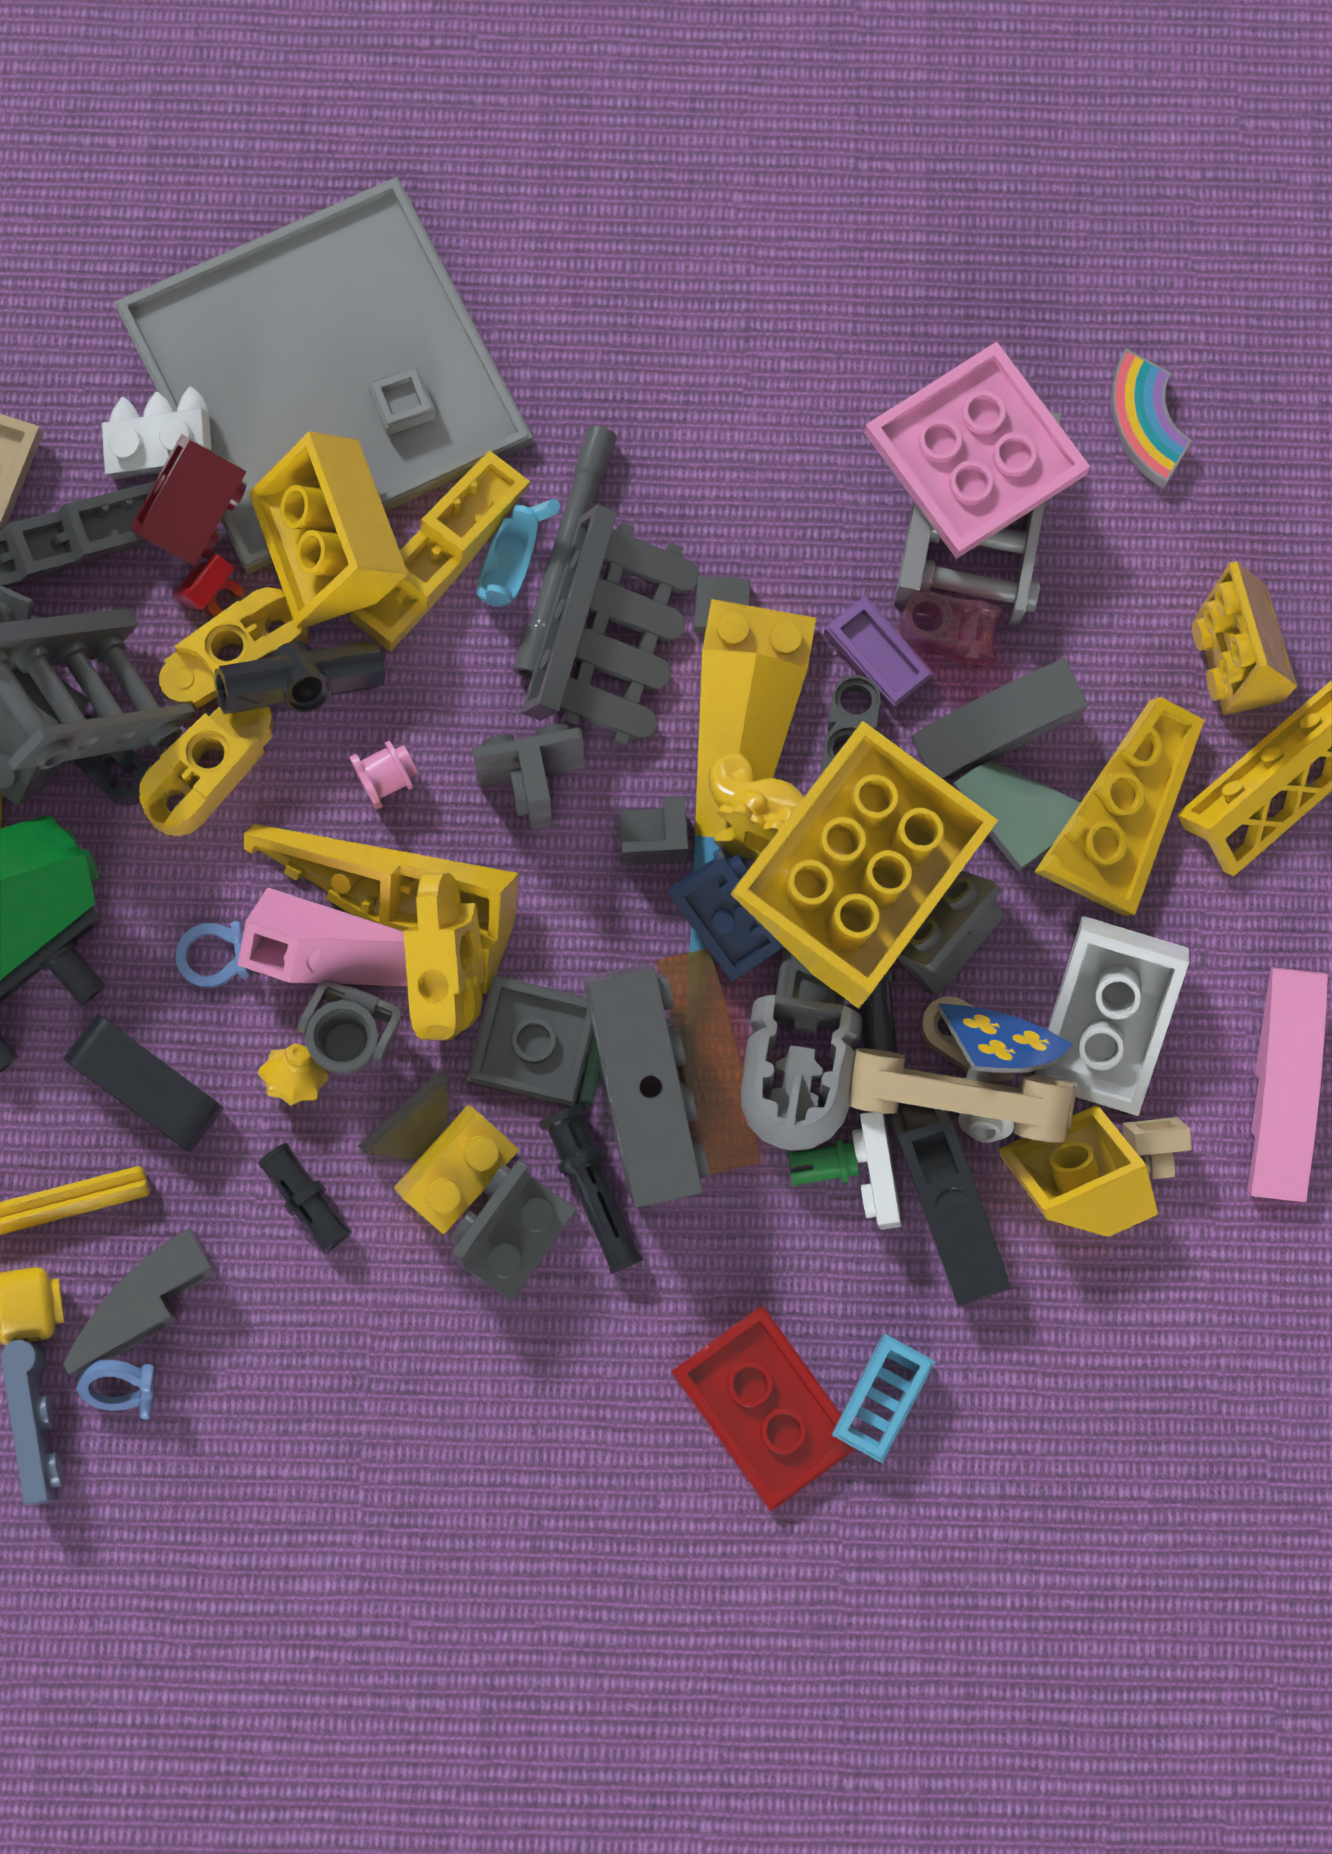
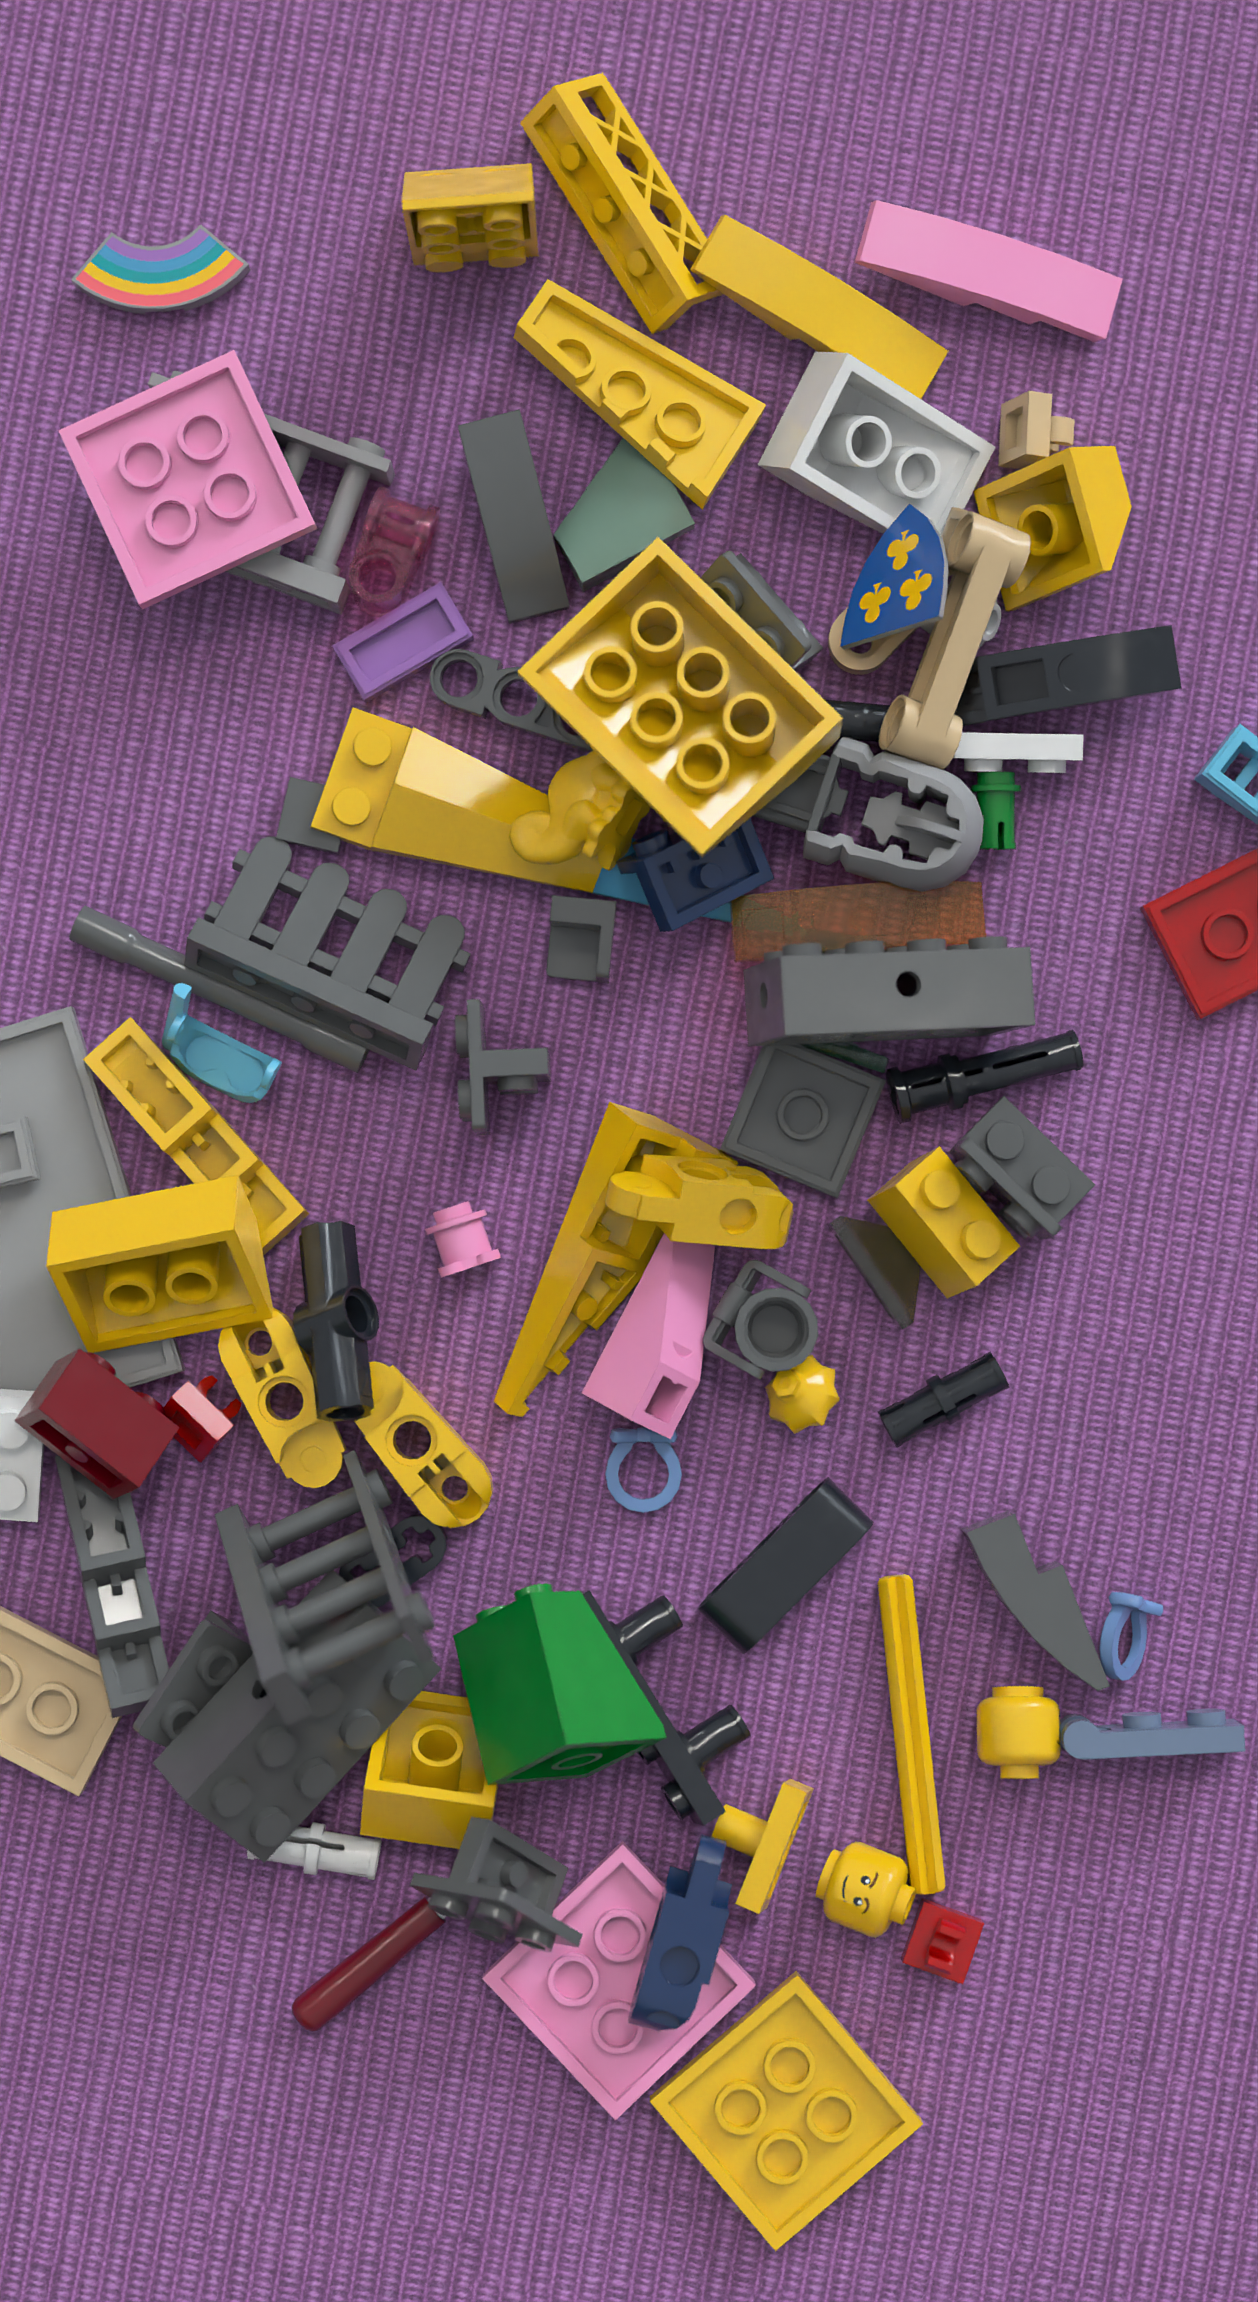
camera: 75 degrees left, 10 degrees up
(1225, 945) = (814, 305): none -> yellow slope

